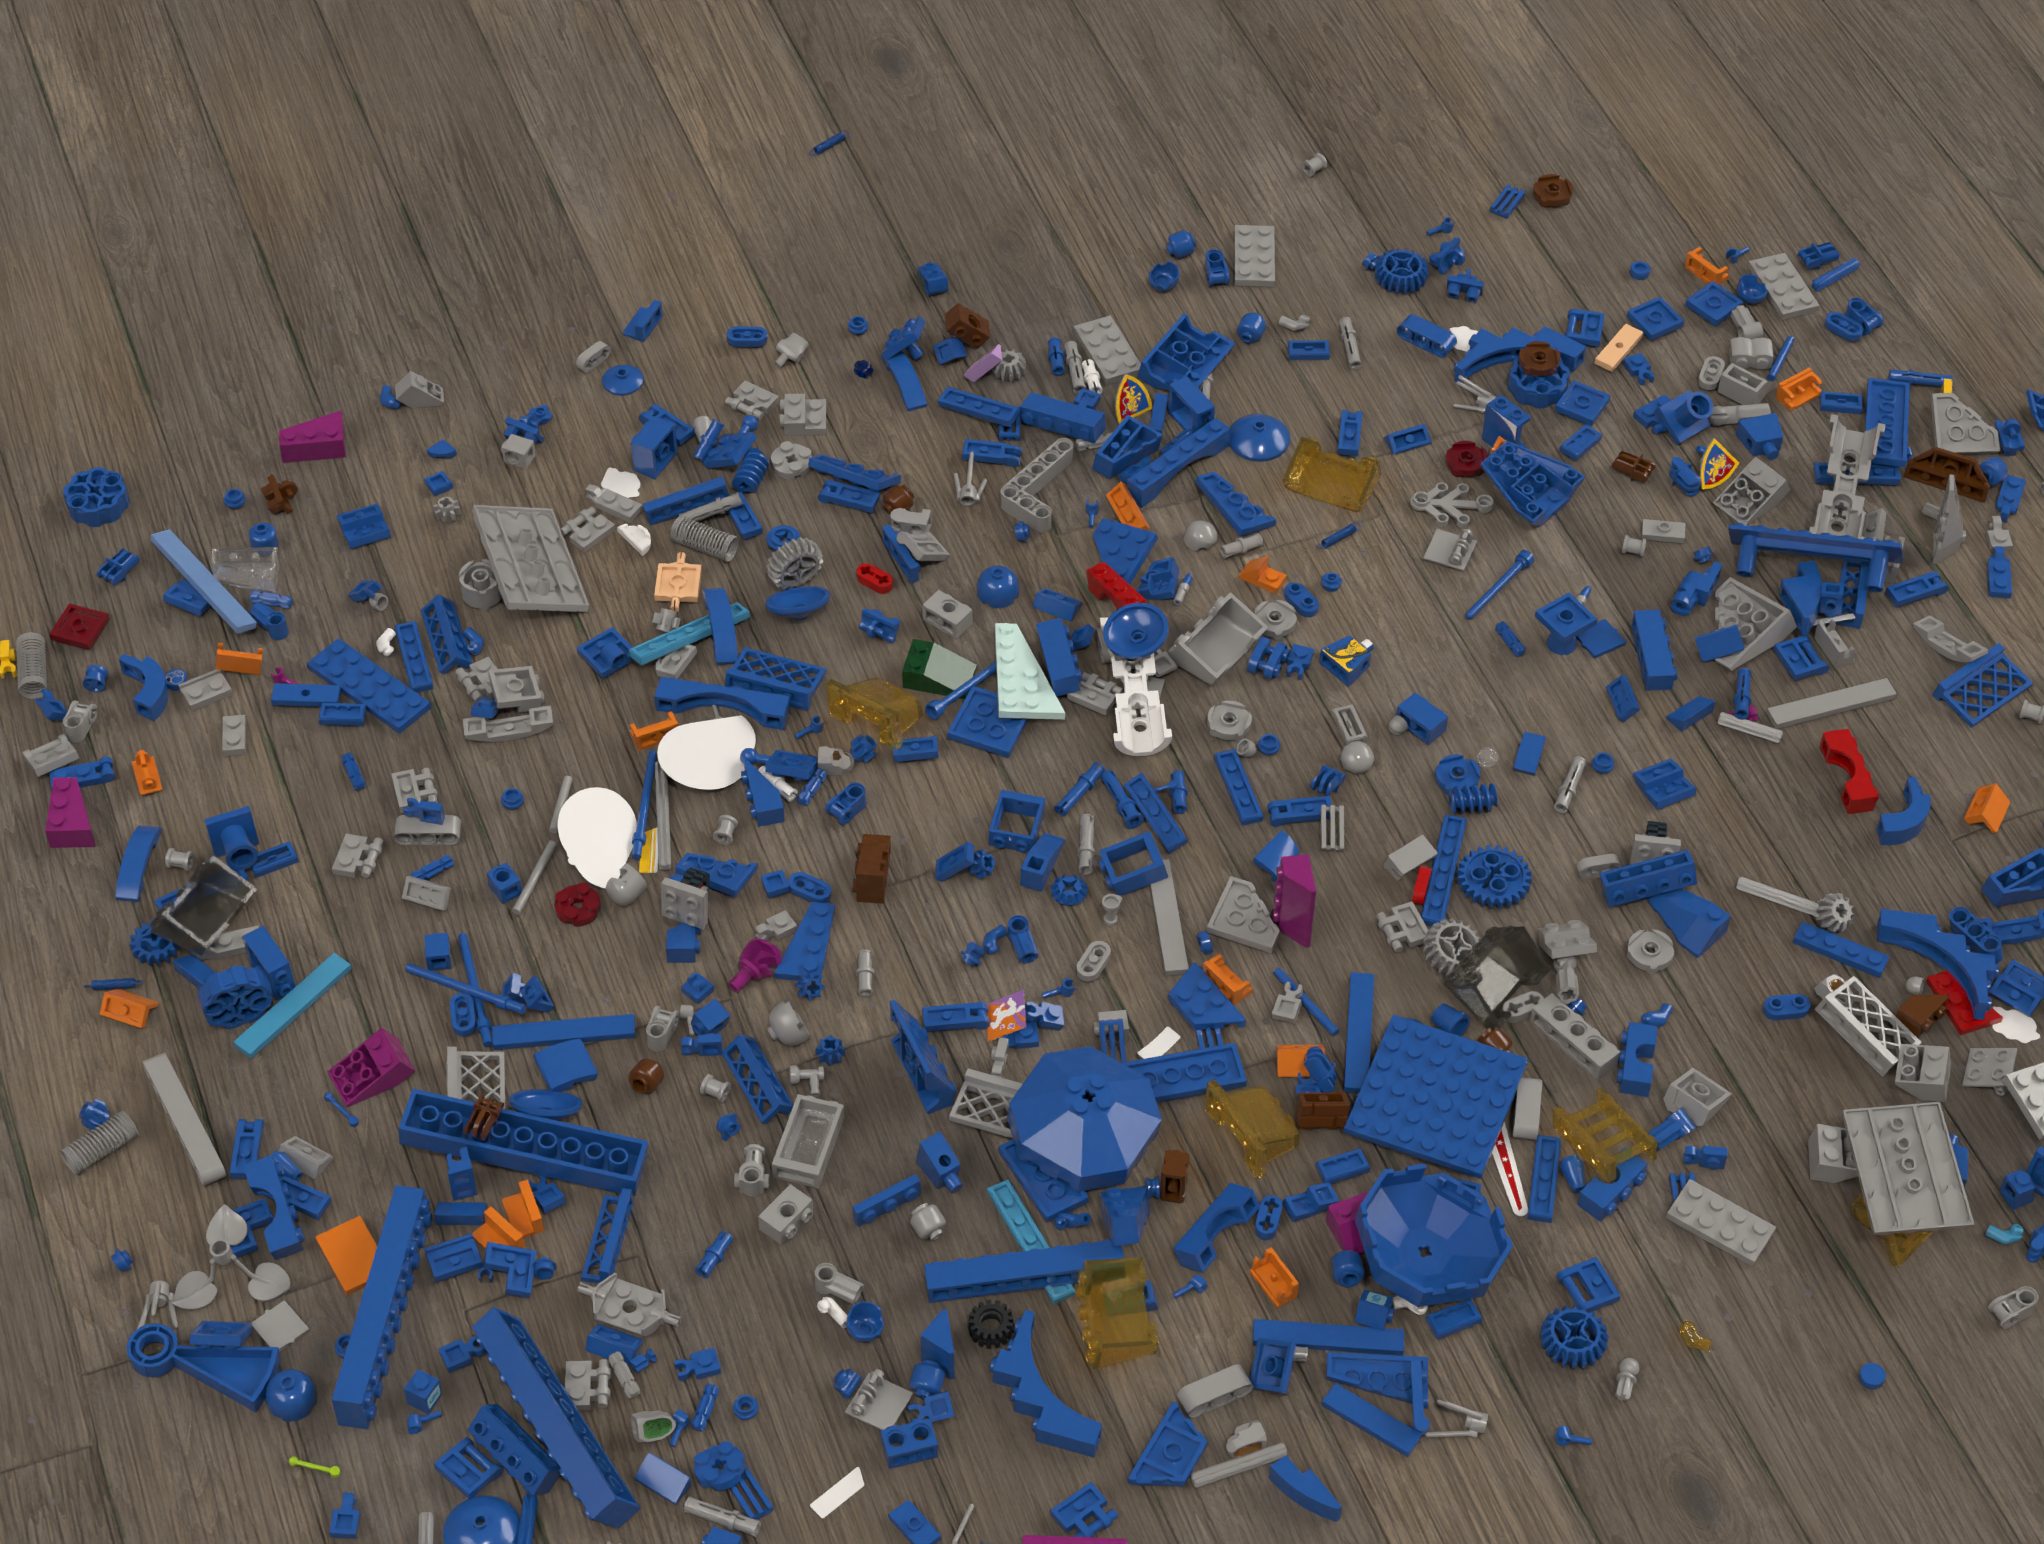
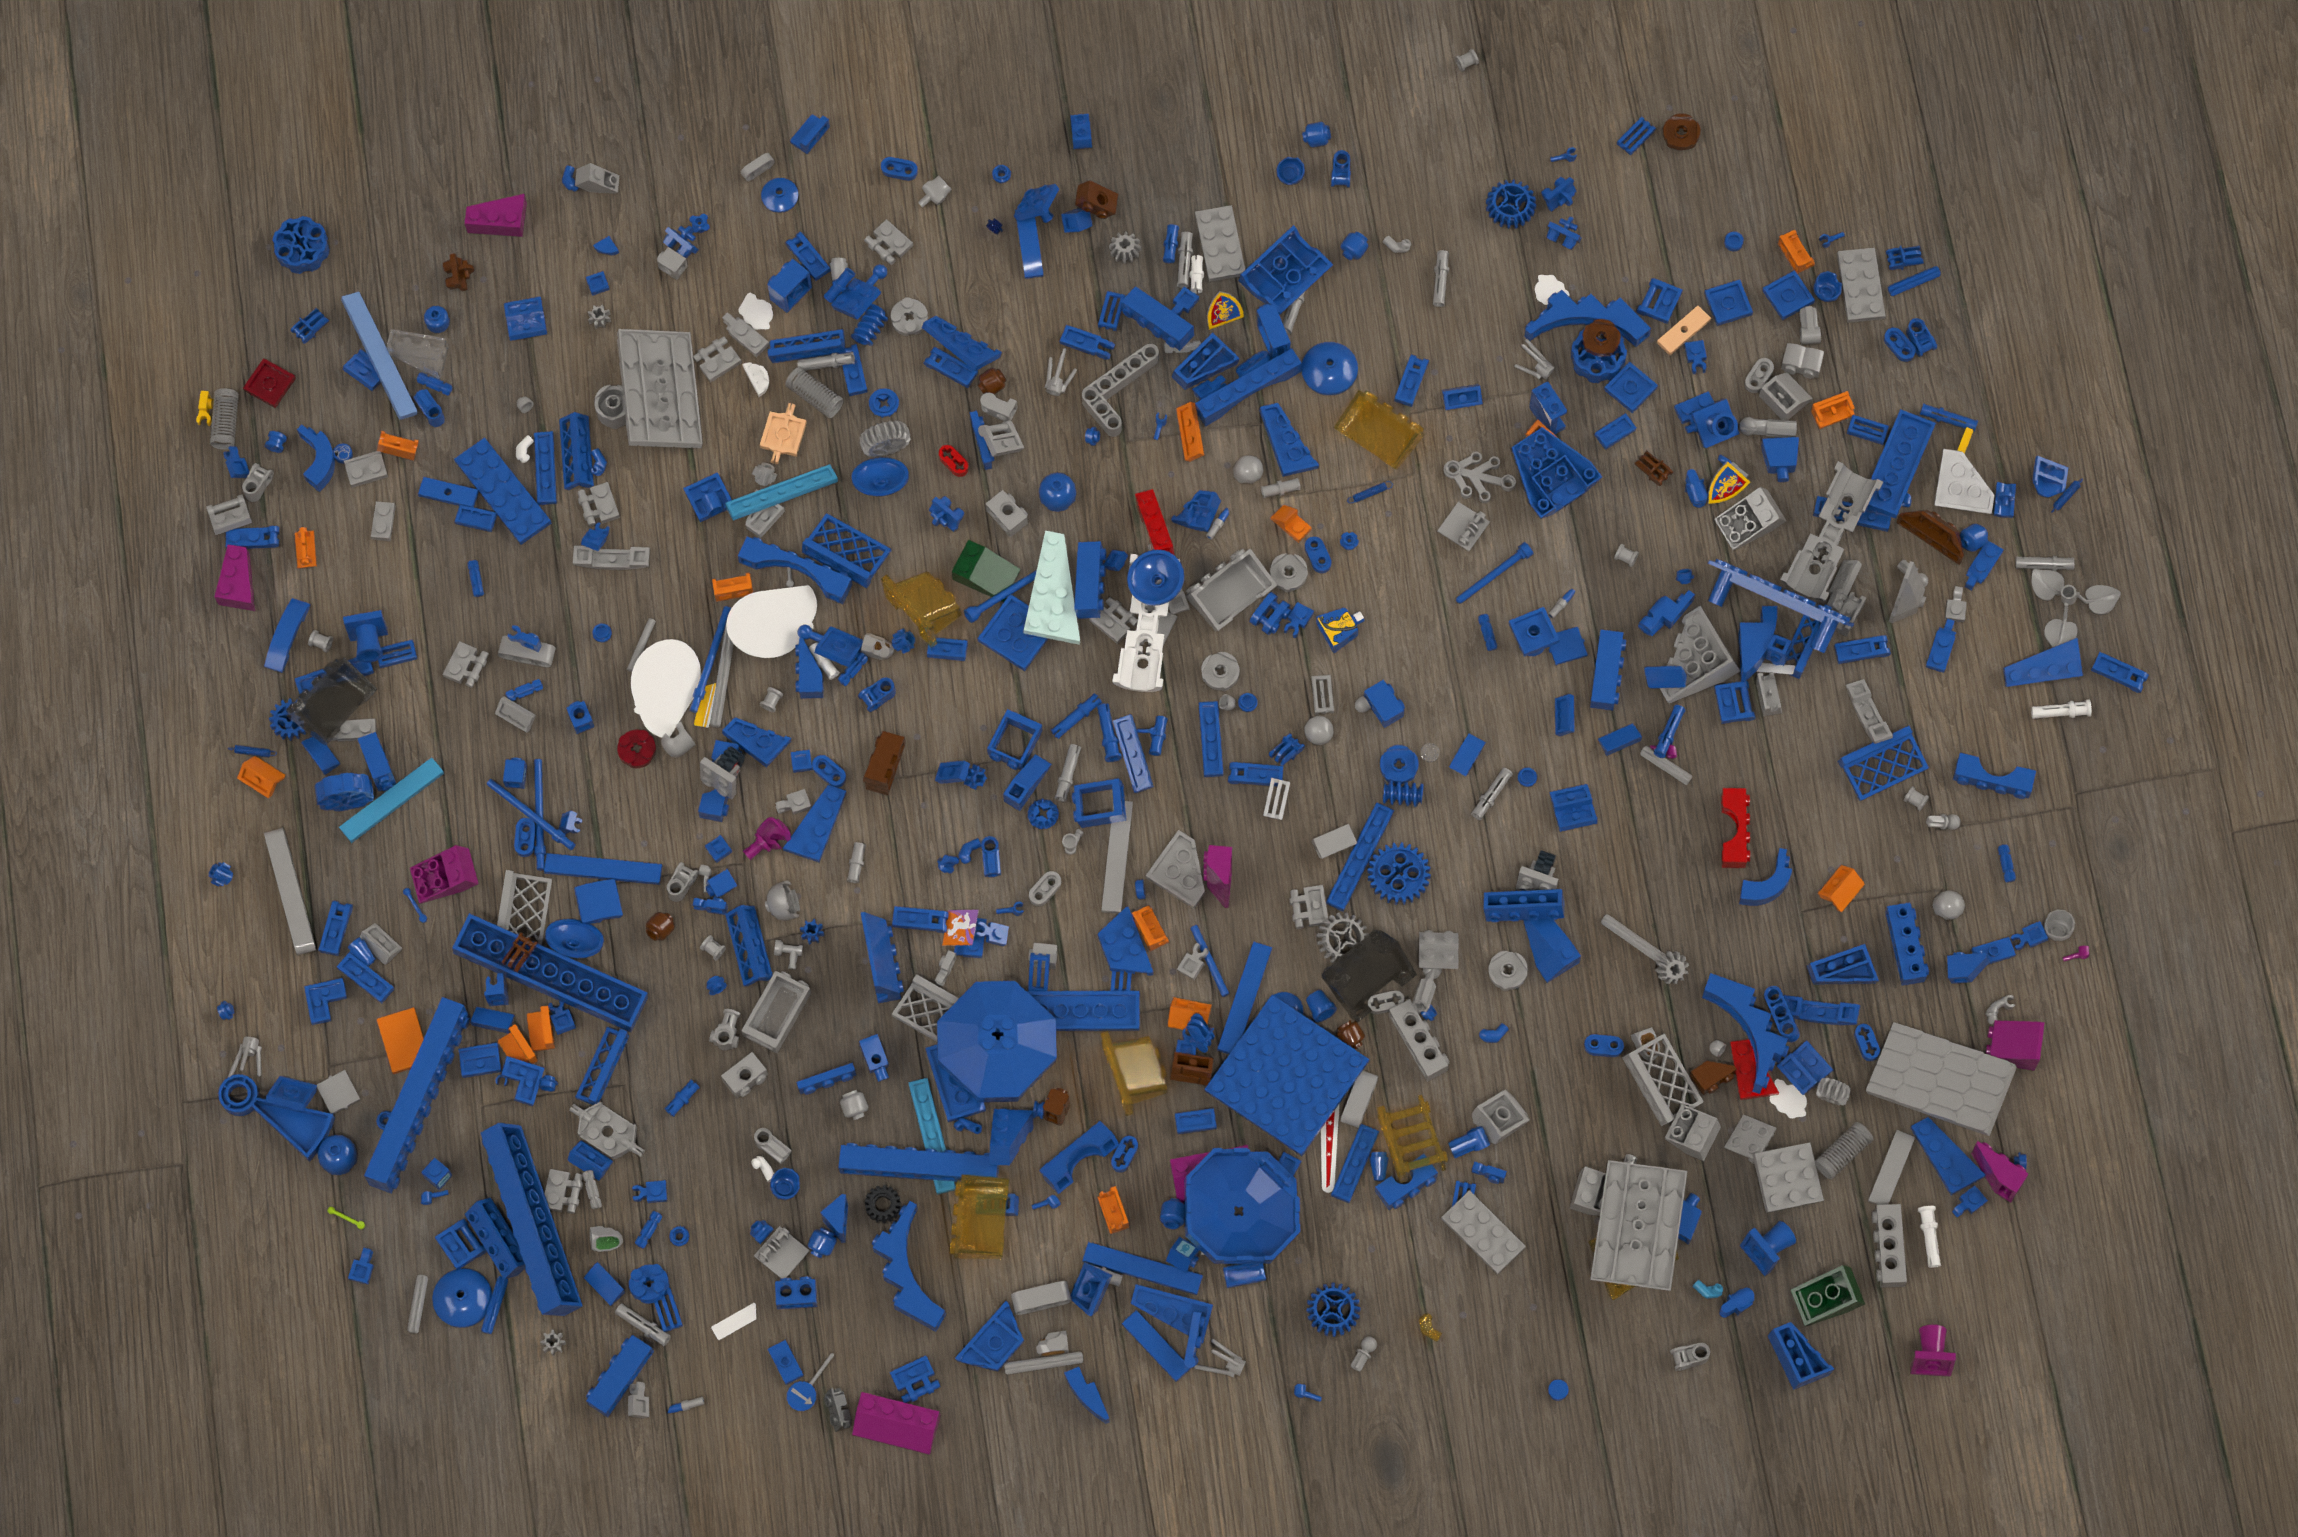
camera: 15 degrees right, 20 degrees up
(74, 1160) = (204, 914): light grey piece -> none
(228, 1230) = (306, 1003): light grey plant -> none
(234, 498) = (419, 268): blue plate -> none
(281, 678) = (431, 469): magenta hand -> none
(282, 1234) = (352, 1014): blue arch -> none
(364, 590) = (514, 392): blue plate -> none
(407, 784) = (516, 607): light grey plate -> none
(459, 1354) = (468, 1146): blue plate -> none
(516, 688) = (623, 523): light grey plate -> none
(534, 877) = (606, 714): light grey bar -> none
(536, 996) = (586, 834): blue bracket -> none
(641, 1362) = (607, 1180): blue piece -> none
(682, 1422) = (629, 1237): blue hand -> none
(721, 625) = (809, 488): blue slope -> none
(803, 415) = (930, 268): light grey plate -> none
(813, 990) = (808, 867): blue gear -> none
(815, 727) = (865, 608): blue hand -> none
(936, 1407) = (823, 1267): blue plate -> none
(978, 406) = (1086, 290): blue plate -> none
(984, 364) = (1102, 244): lavender slope -> none
(1057, 604) = (1105, 517): blue slope -> none
(1123, 547) = (1174, 473): blue plate -> none
(1159, 412) = (1246, 326): blue piece -> none
(1160, 1044) = (1079, 977): white sticker -> none
(1254, 256) = (1382, 157): light grey plate -> none
(1271, 854) = (1224, 819): blue slope -> none
(1309, 350) = (1401, 278): blue tile -> none
(1310, 1203) = (1162, 1147): blue slope -> none
(1370, 261) = (1486, 186): blue plate -> none
(1421, 885) = (1335, 869): red beam -> none
(1426, 335) = (1512, 283): blue beam -> none
(1461, 467) = (1500, 422): dark red plate -> none
(1592, 866) = (1490, 880): light grey beam -> none
(1595, 1283) = (1365, 1264): blue plate -> none
(1636, 1075) = (1469, 1056): blue arch -> none
(1663, 531) = (1659, 542): light grey plate -> none
(1780, 358) = (1830, 368): blue bar -> none
(1831, 703) = (1745, 754): light grey tile -> none
(1841, 949) = (1668, 1000): blue plate -> none
(2022, 1185) = (1732, 1254): blue brick -> none

